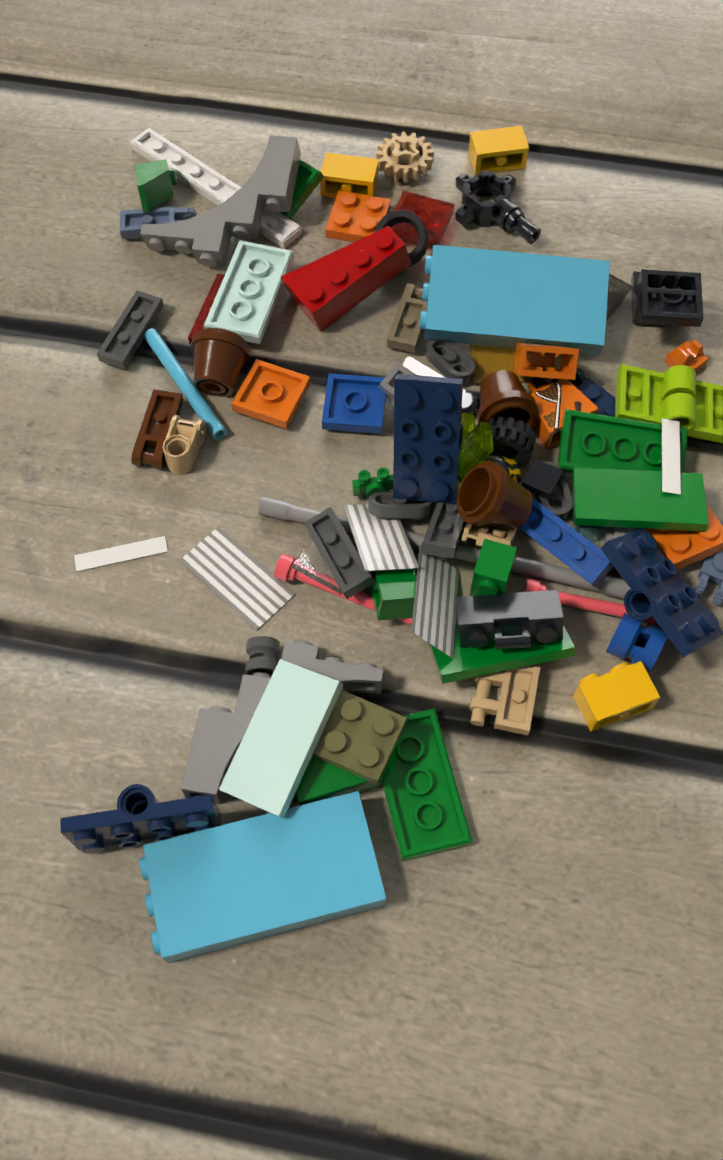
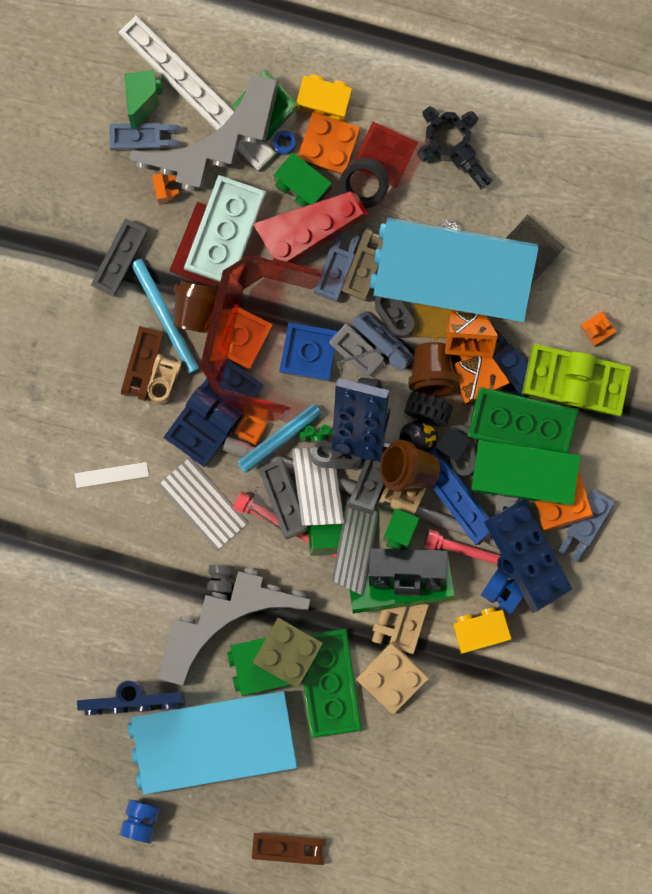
camera: 10 degrees right, 20 degrees up
(154, 1017) = (140, 821): none -> blue wheel
(180, 262) = (164, 194): none -> orange tile
(243, 472) = (208, 418): none -> dark blue plate
(267, 321) = (223, 321): none -> clear red piece
(281, 738) = (231, 649): light aqua tile -> none
(292, 488) = (251, 429): none -> orange tile
(310, 219) = (283, 150): none -> blue bush
(324, 238) = (301, 181): none -> green brick
(324, 492) = (279, 438): none -> medium azure axle
(377, 323) = (336, 269): none -> sand blue hinge
(382, 1028) = (287, 848): none -> reddish brown plate
(405, 156) = (370, 70): tan gear -> none
(476, 444) = (400, 413): clear neon green plate -> none
(498, 149) = (467, 75): yellow brick -> none
(505, 765) = (392, 677): none -> tan plate
(667, 298) = (587, 273): black bracket -> none
(671, 457) = (557, 437): white sticker -> none

